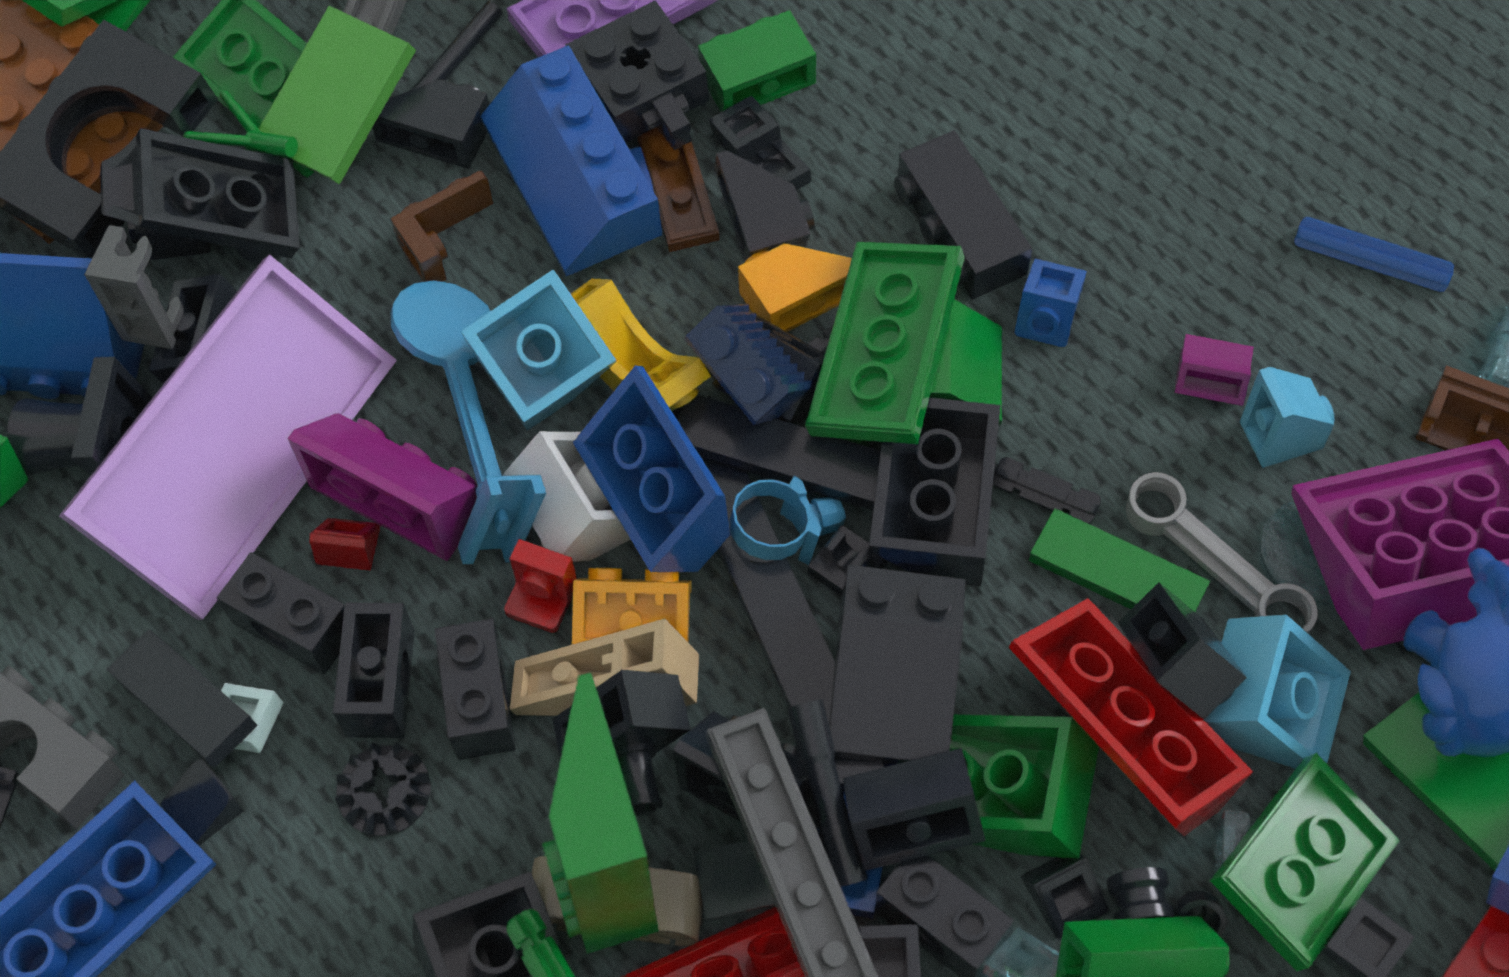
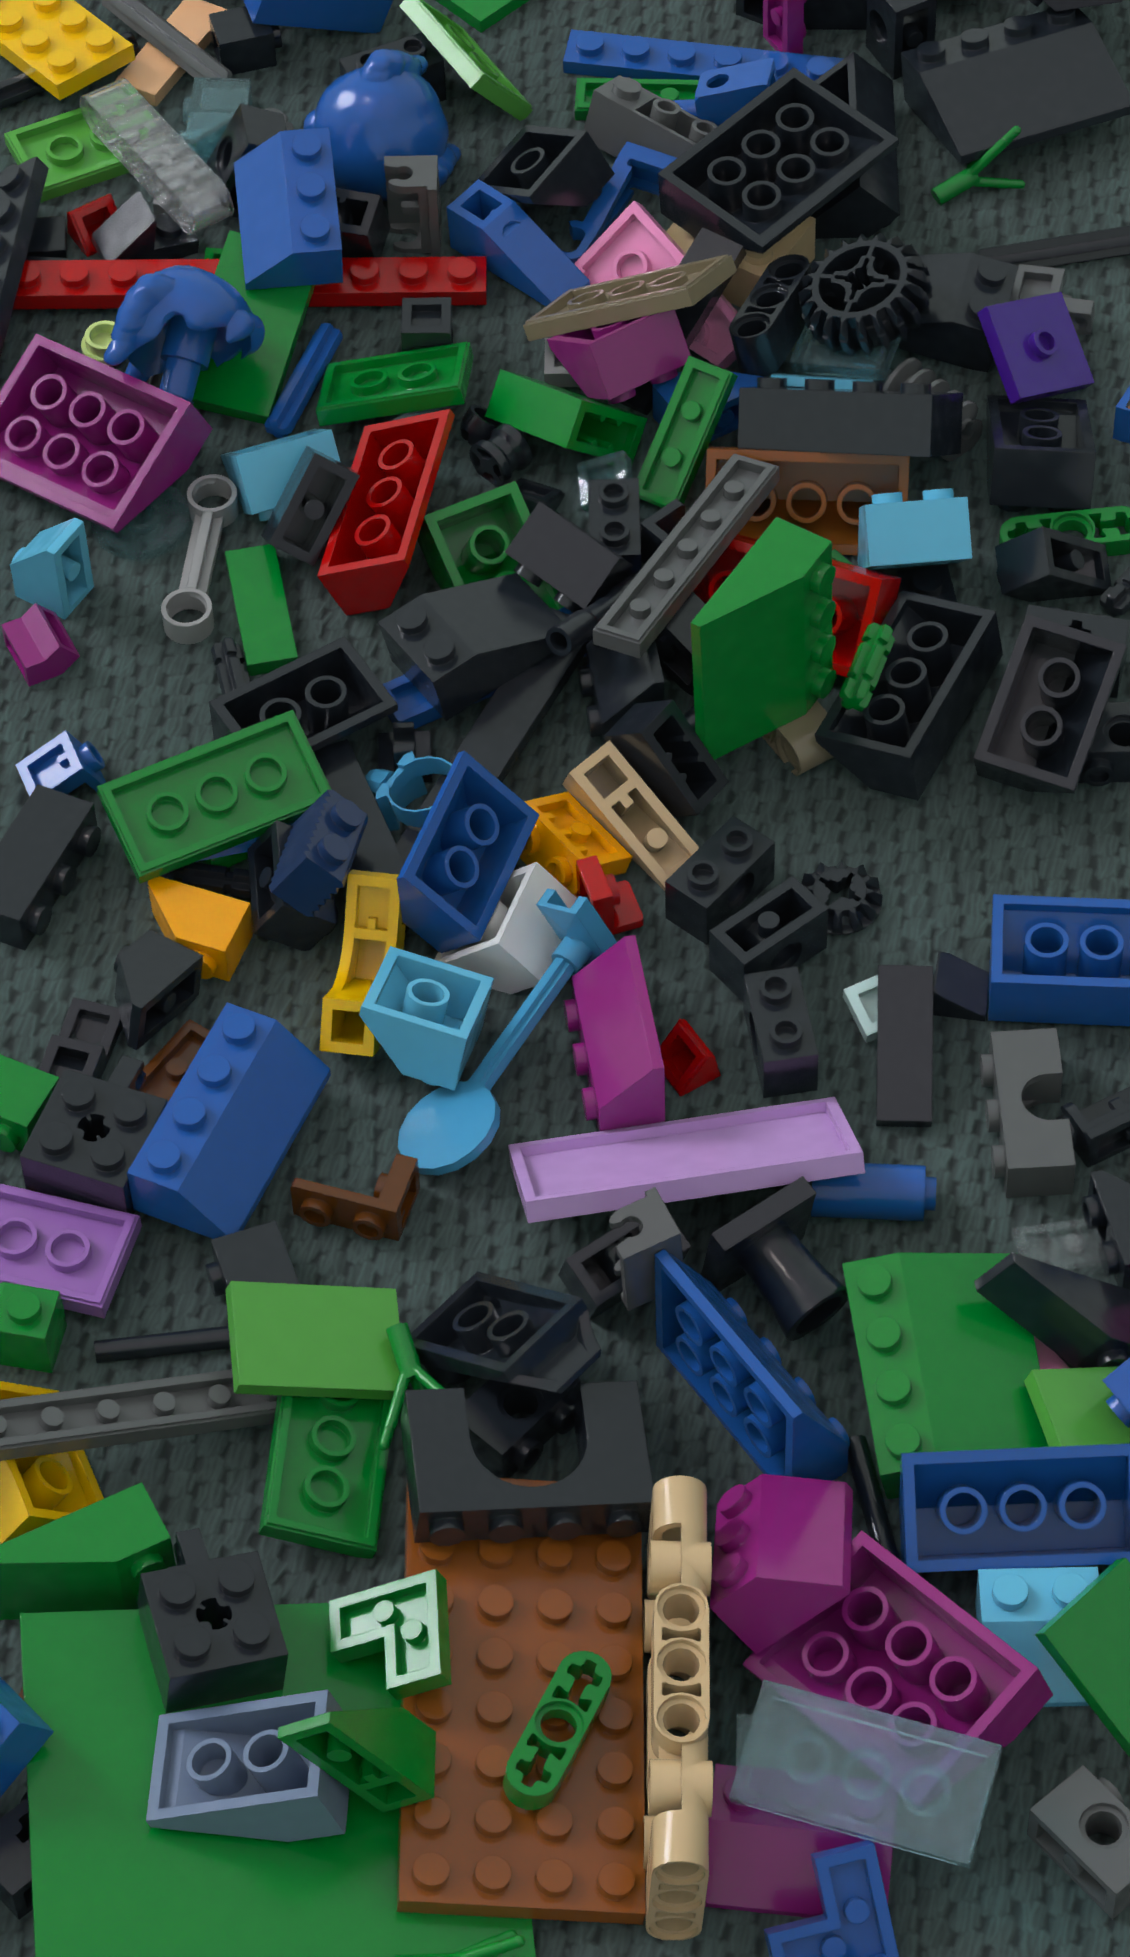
camera: 130 degrees left, 10 degrees down
(75, 581) = (878, 1194): none -> blue brick
(1394, 806) = (303, 381): none -> blue axle

